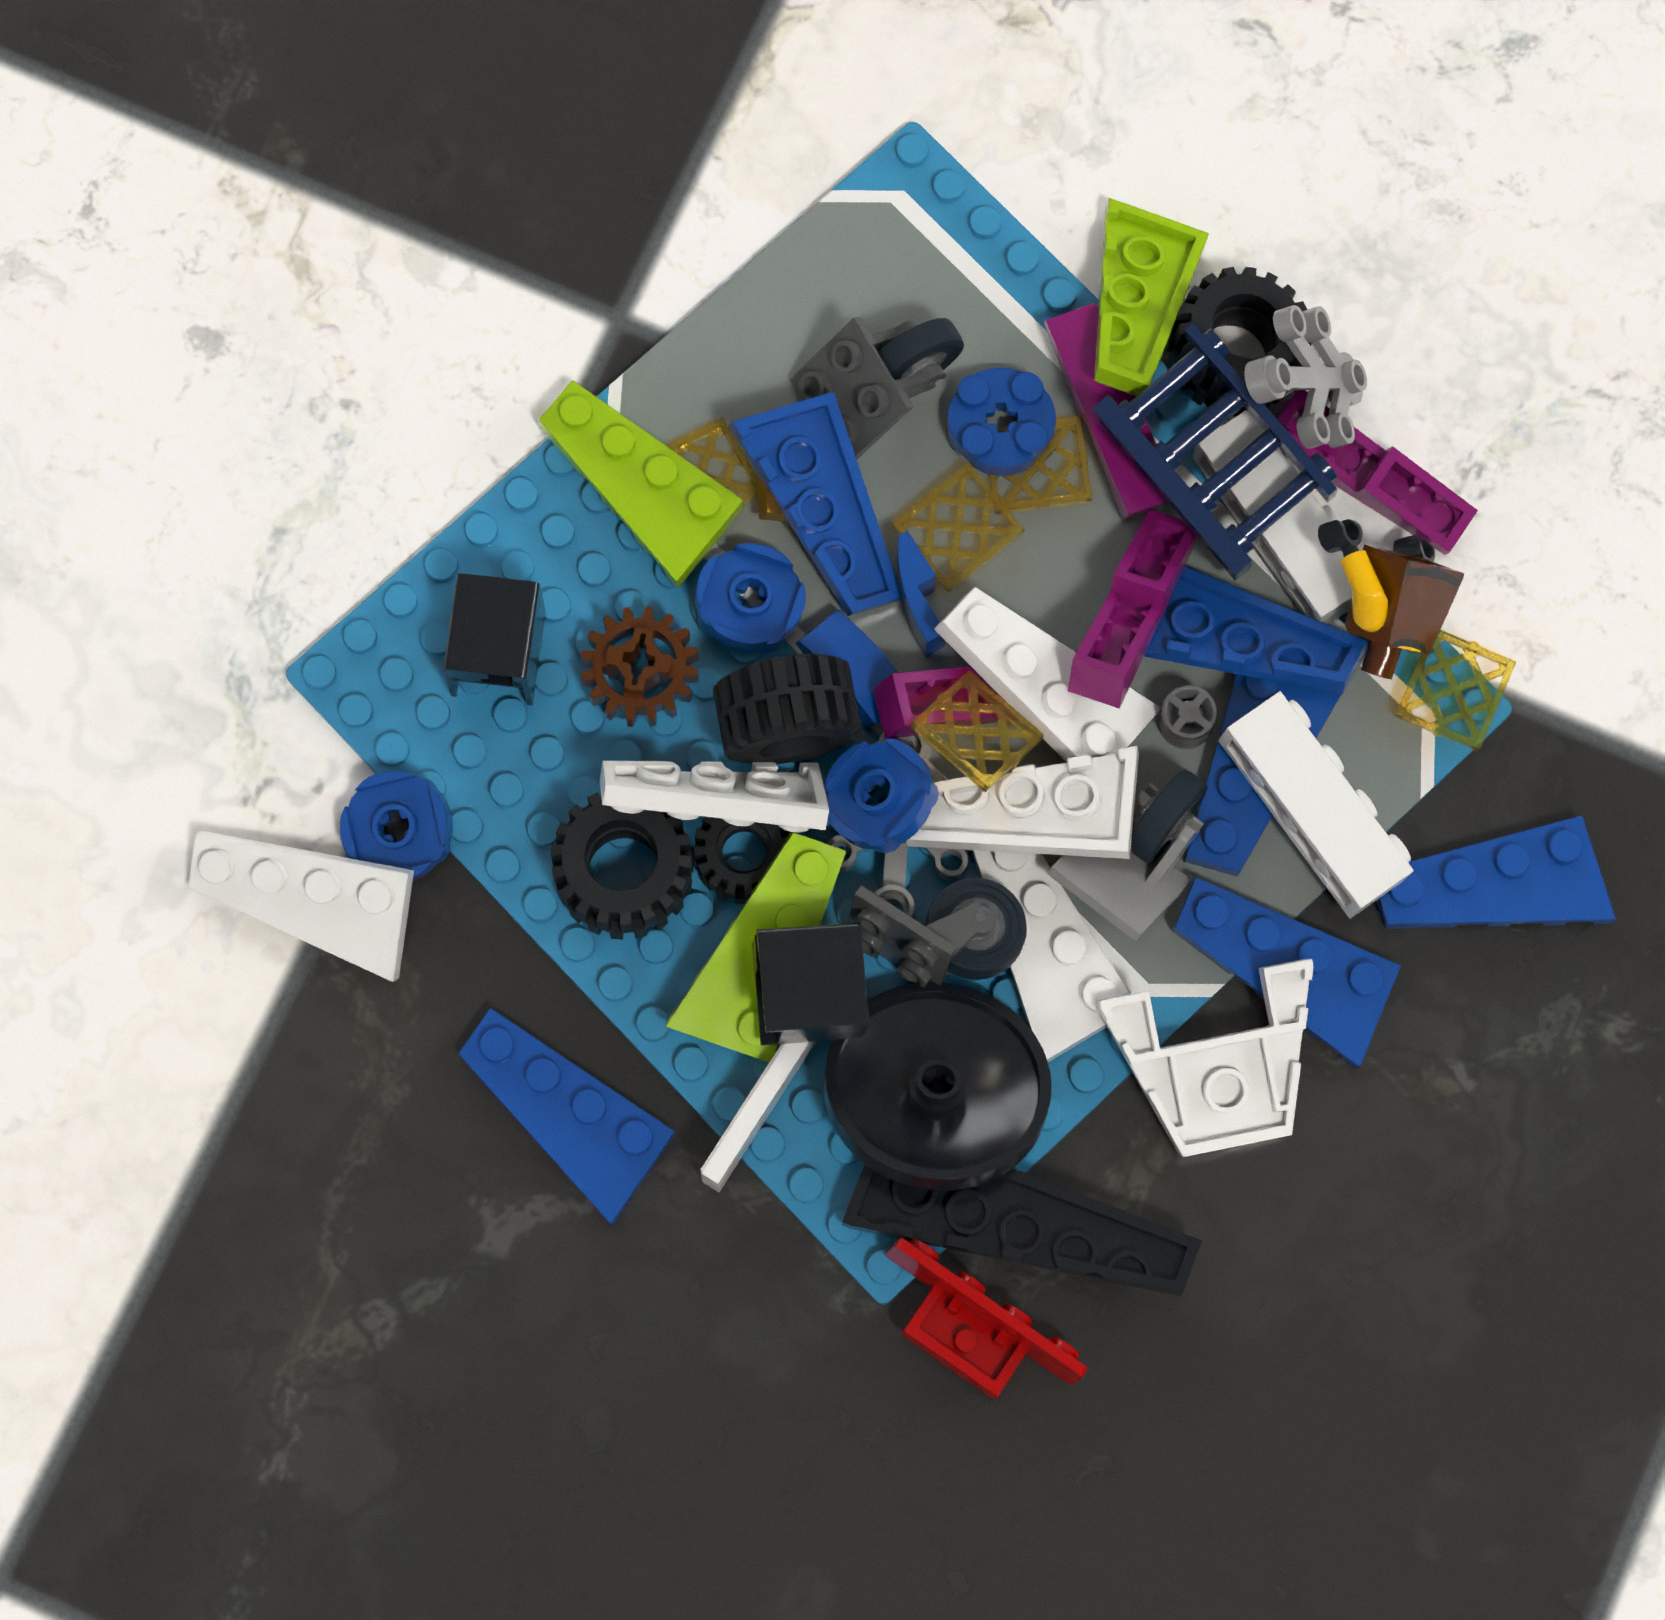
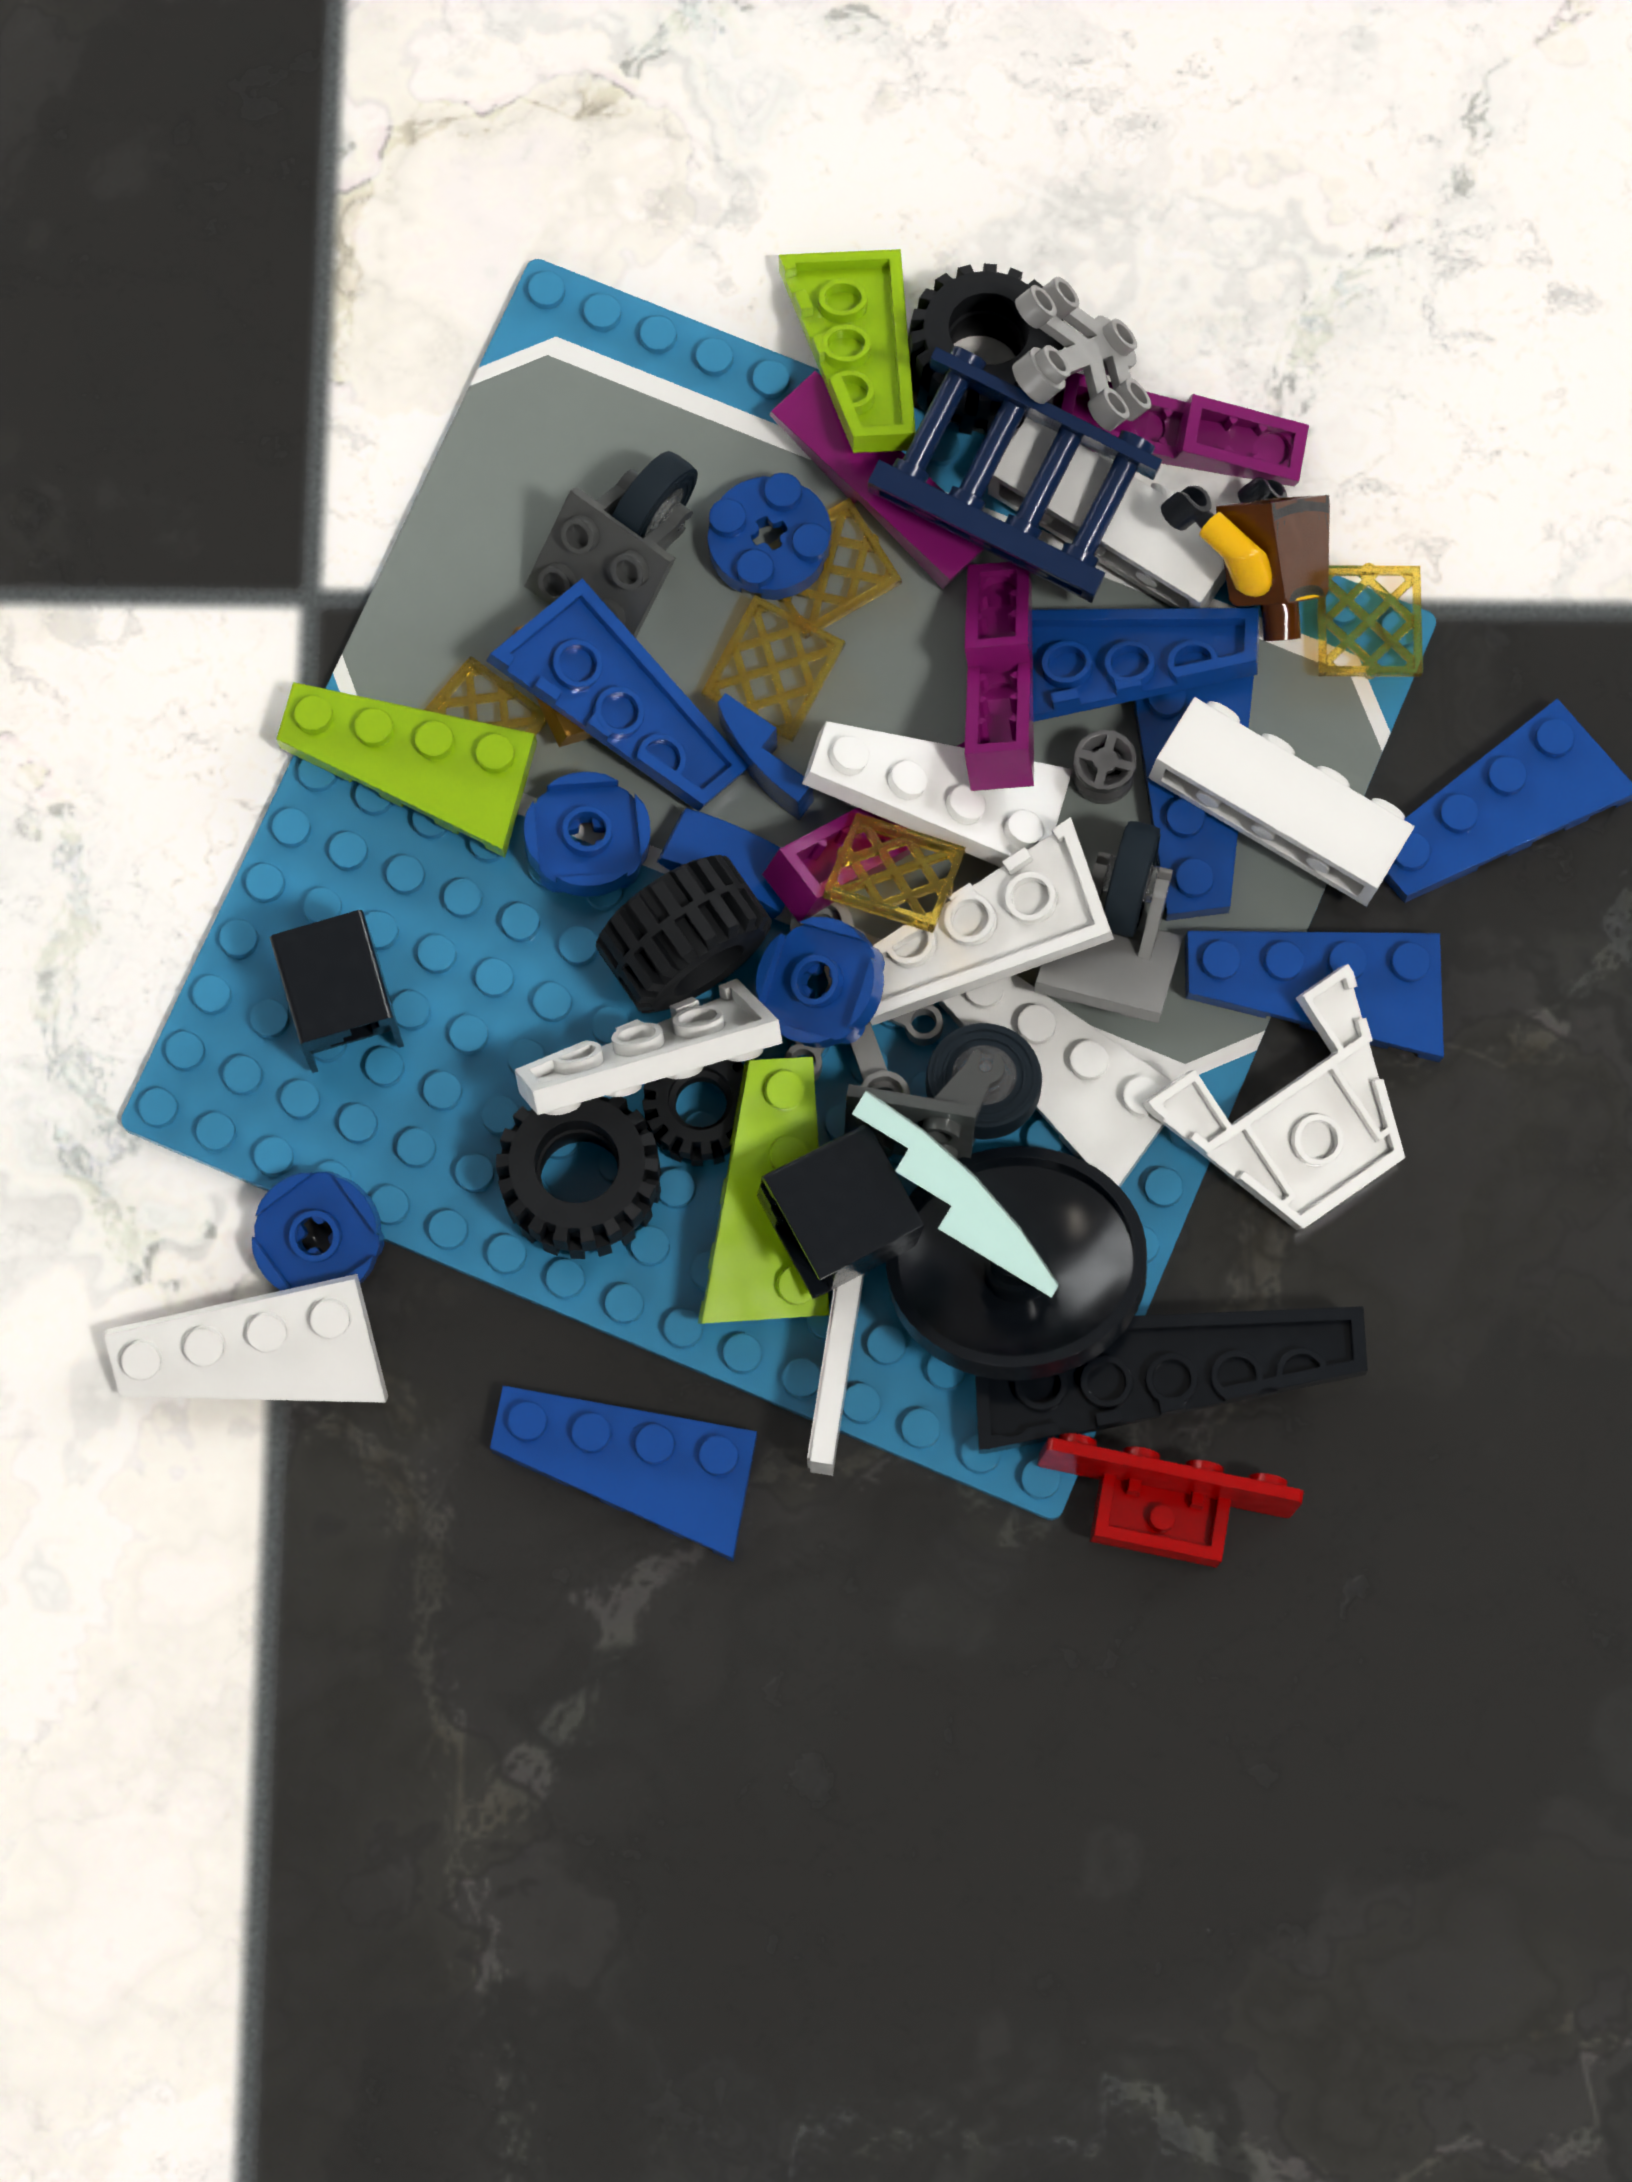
camera: 20 degrees left, 0 degrees up
(660, 672) = (479, 960): reddish brown gear -> none
(915, 1031) = (974, 1212): none -> light aqua slope

